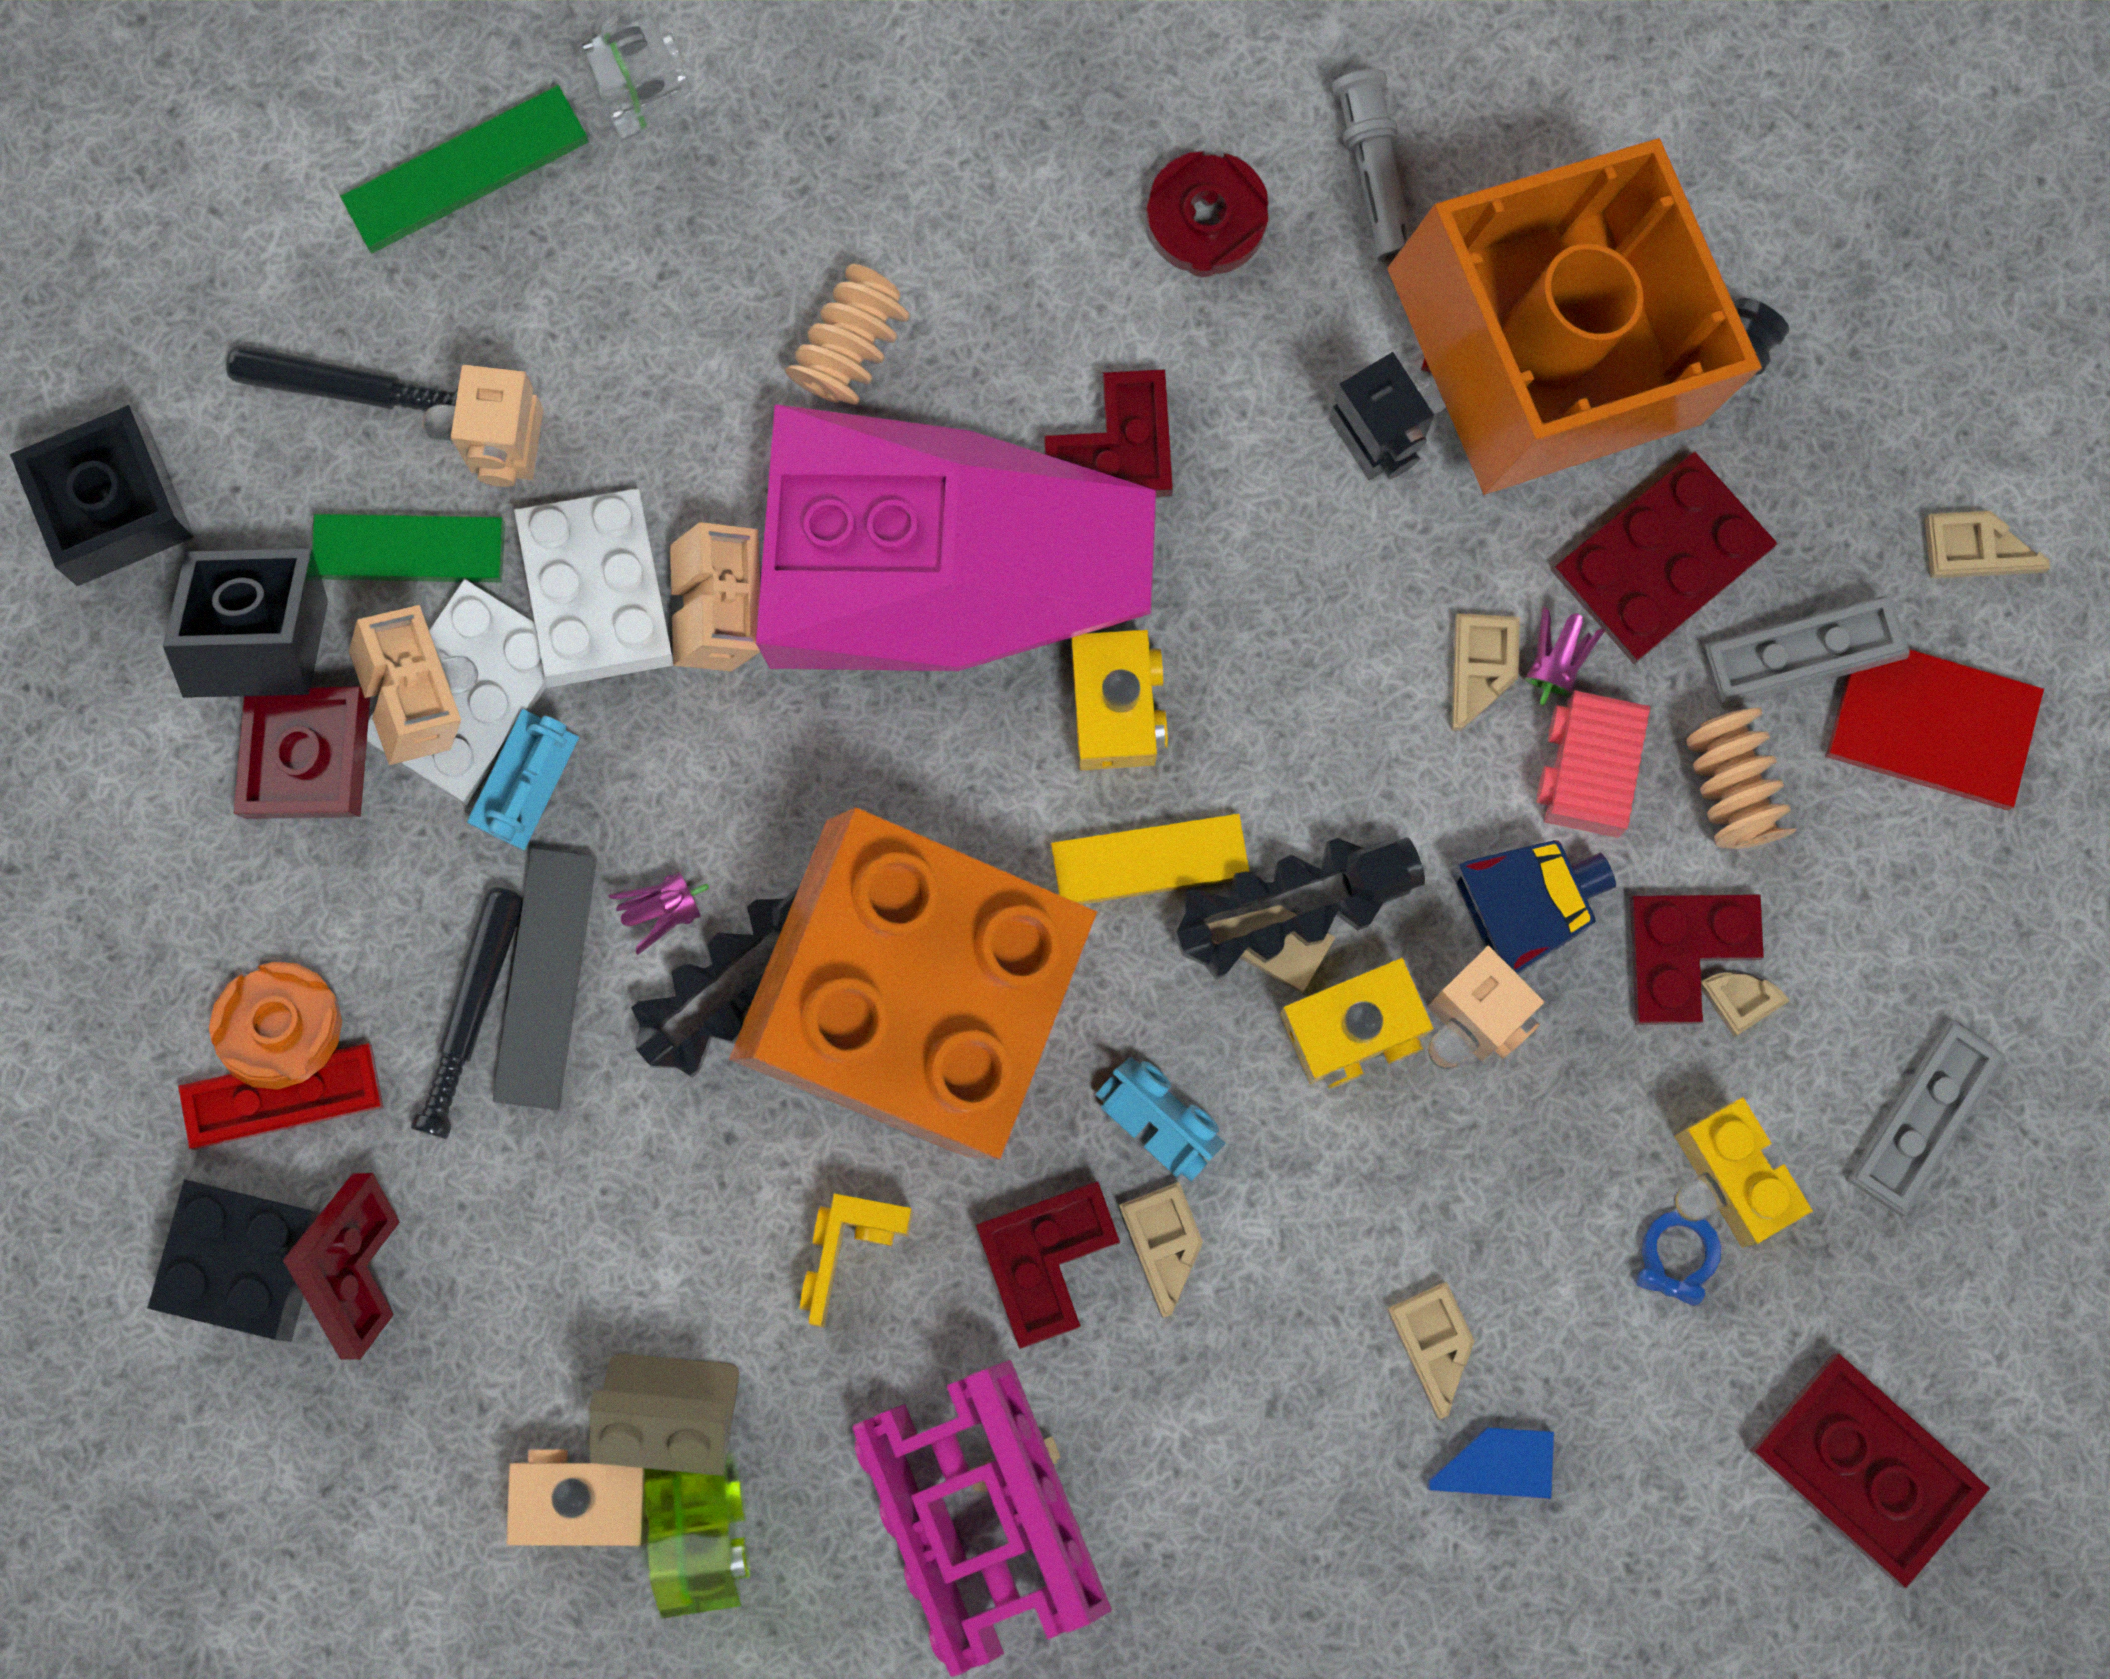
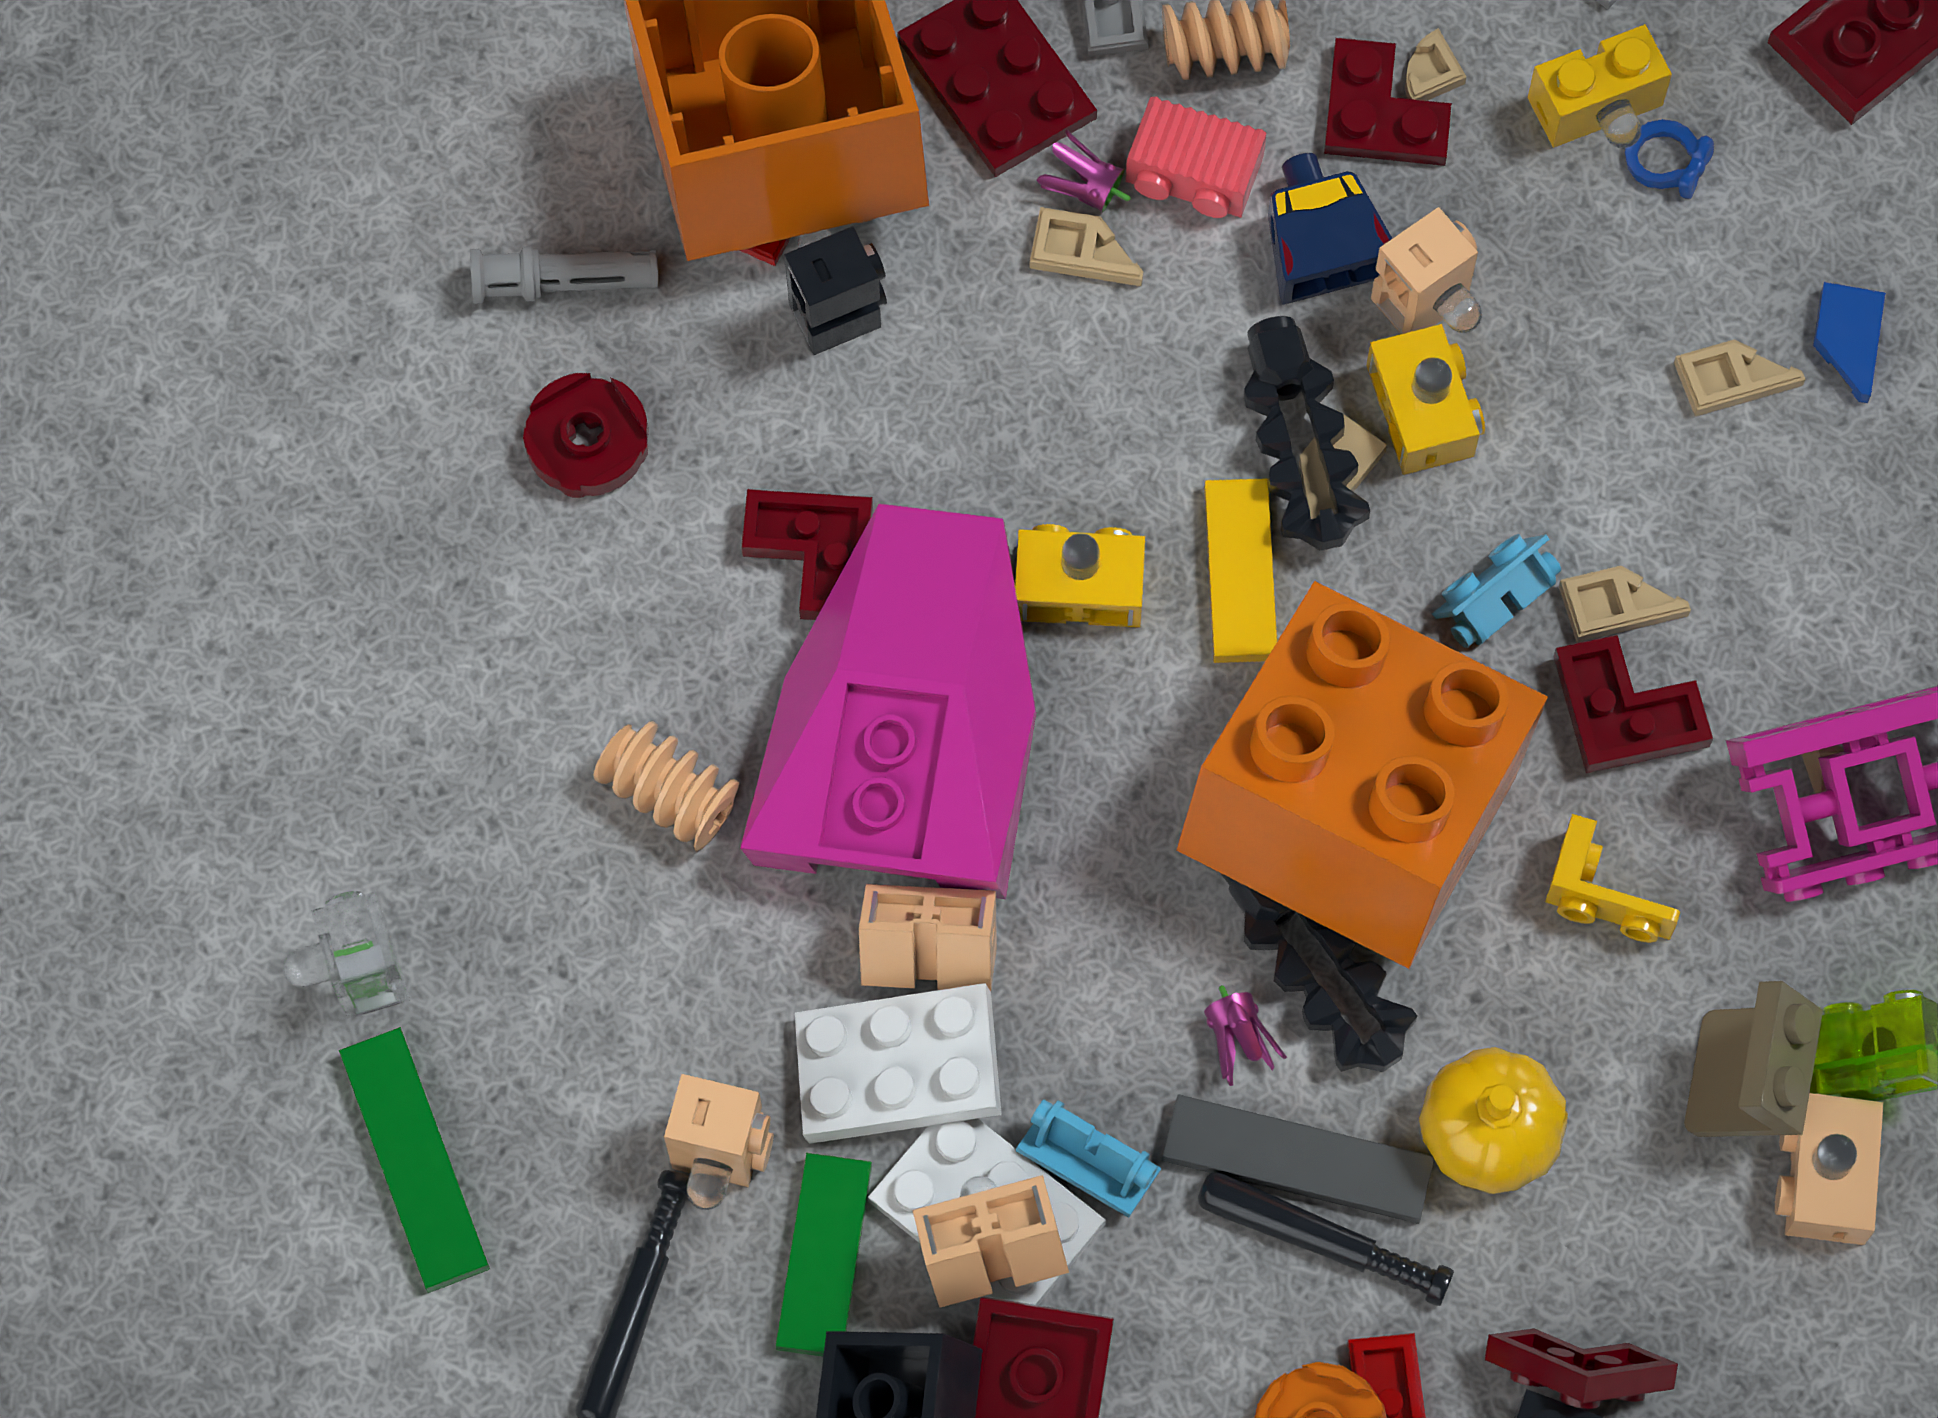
camera: 80 degrees left, 10 degrees down
(589, 1159) = (1493, 1120): none -> yellow piece

